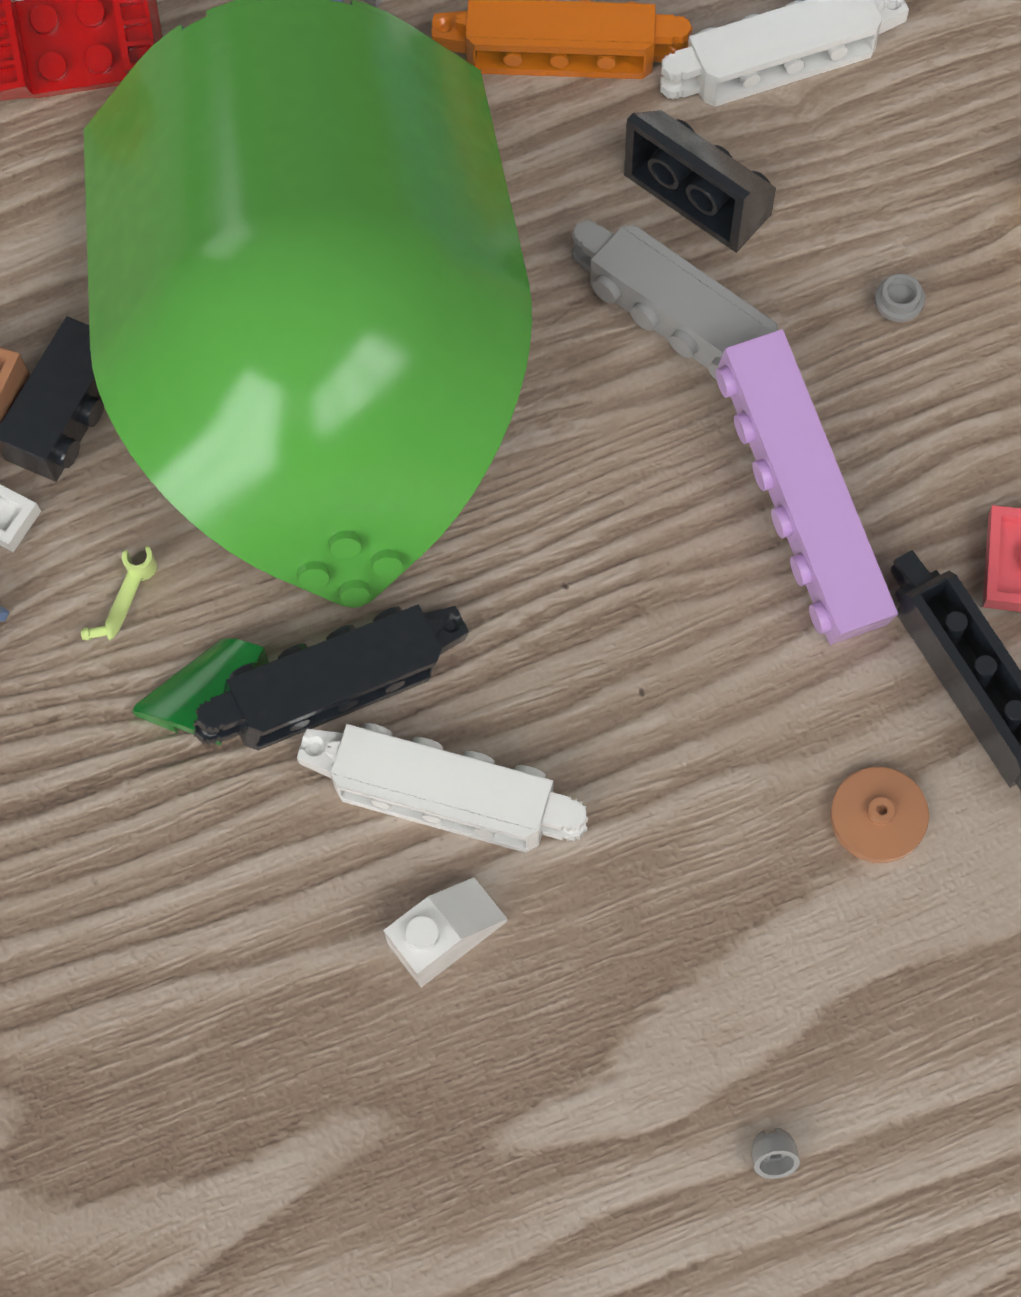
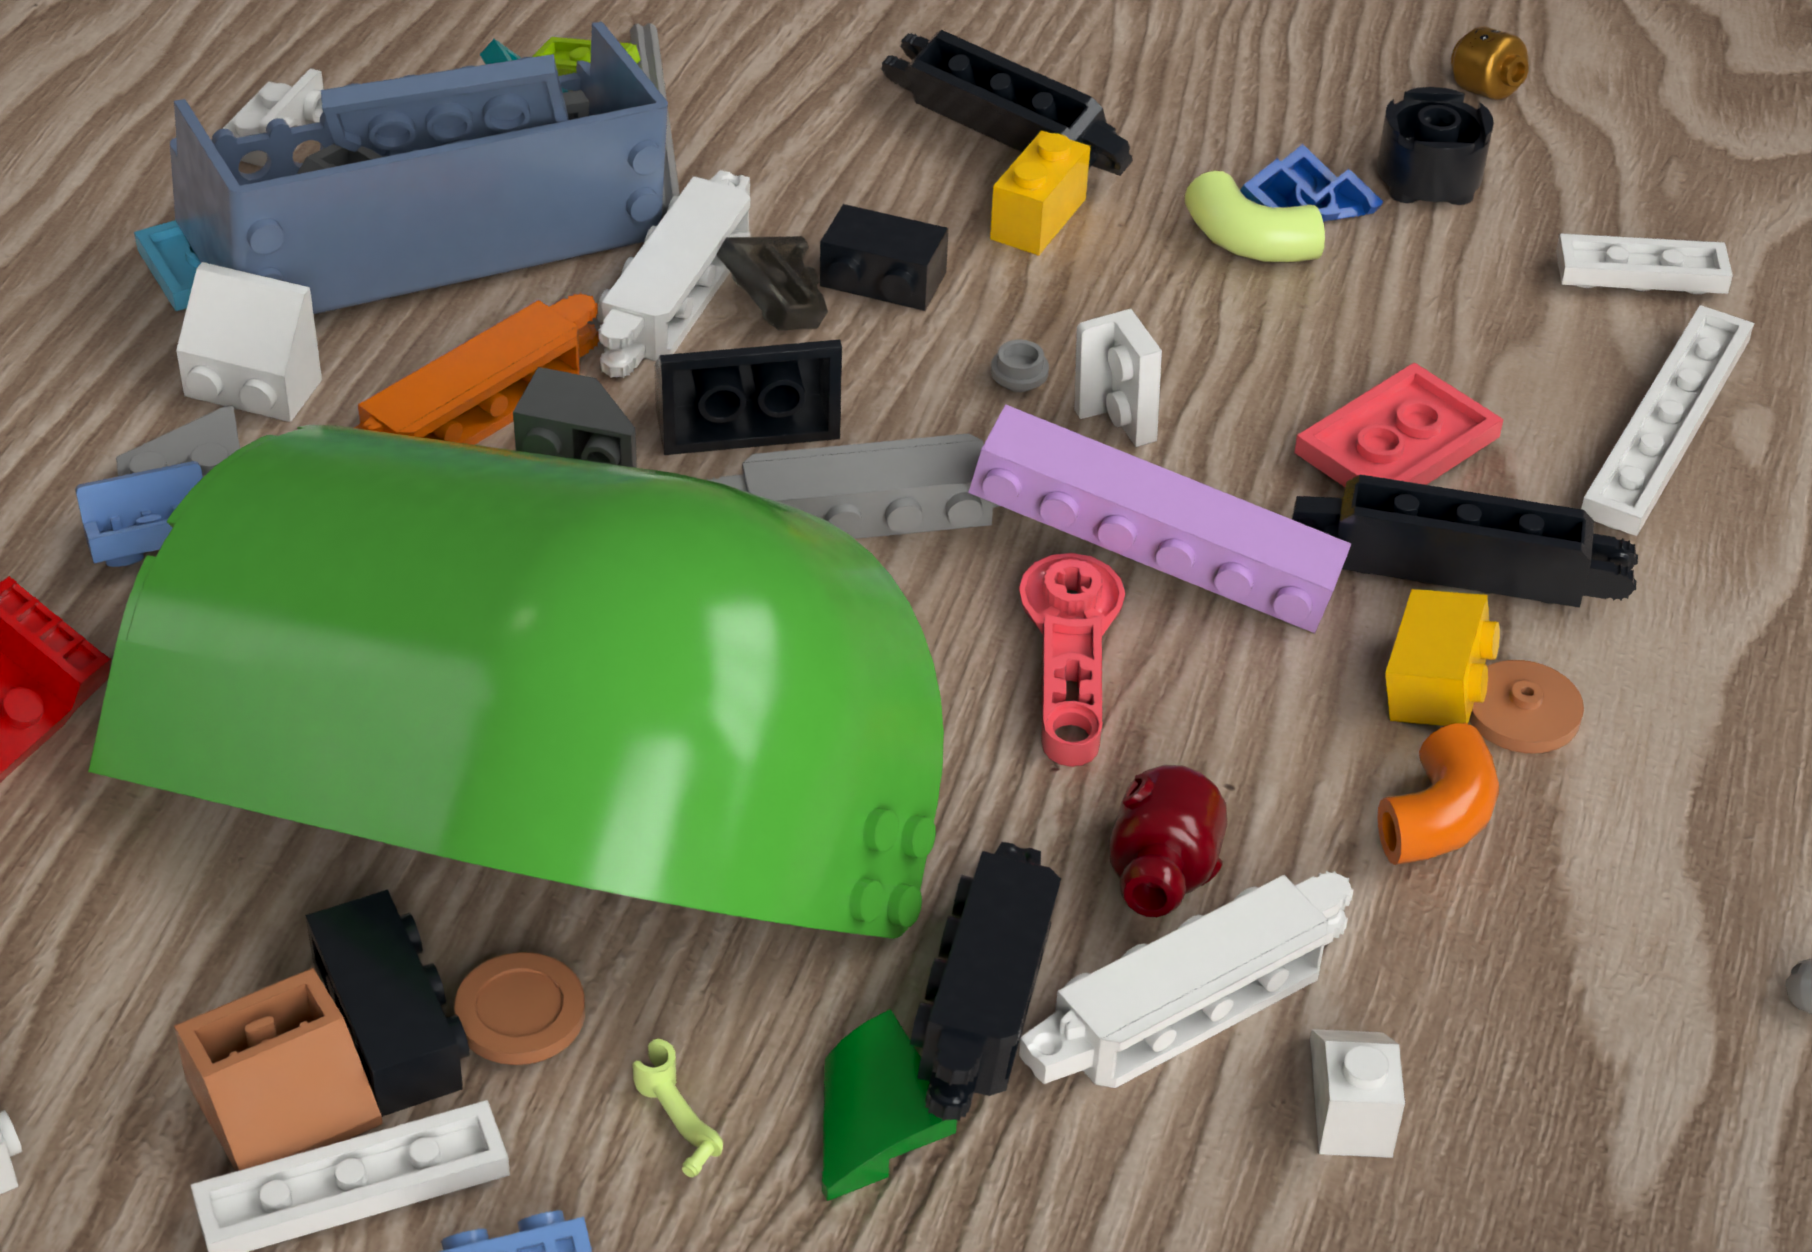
camera: 55 degrees left, 25 degrees down
(109, 470) = (520, 1008): none -> nougat piece
(536, 693) = (1167, 838): none -> dark red piece
(541, 131) = (573, 419): none -> dark grey slope
(669, 517) = (1071, 645): none -> coral beam
(731, 834) = (1453, 806): none -> orange cylinder
(832, 103) = (776, 279): none -> clear smoke wing
(854, 737) = (1441, 658): none -> yellow brick
(918, 142) = (883, 257): none -> black brick
(926, 354) = (1119, 374): none -> white bracket

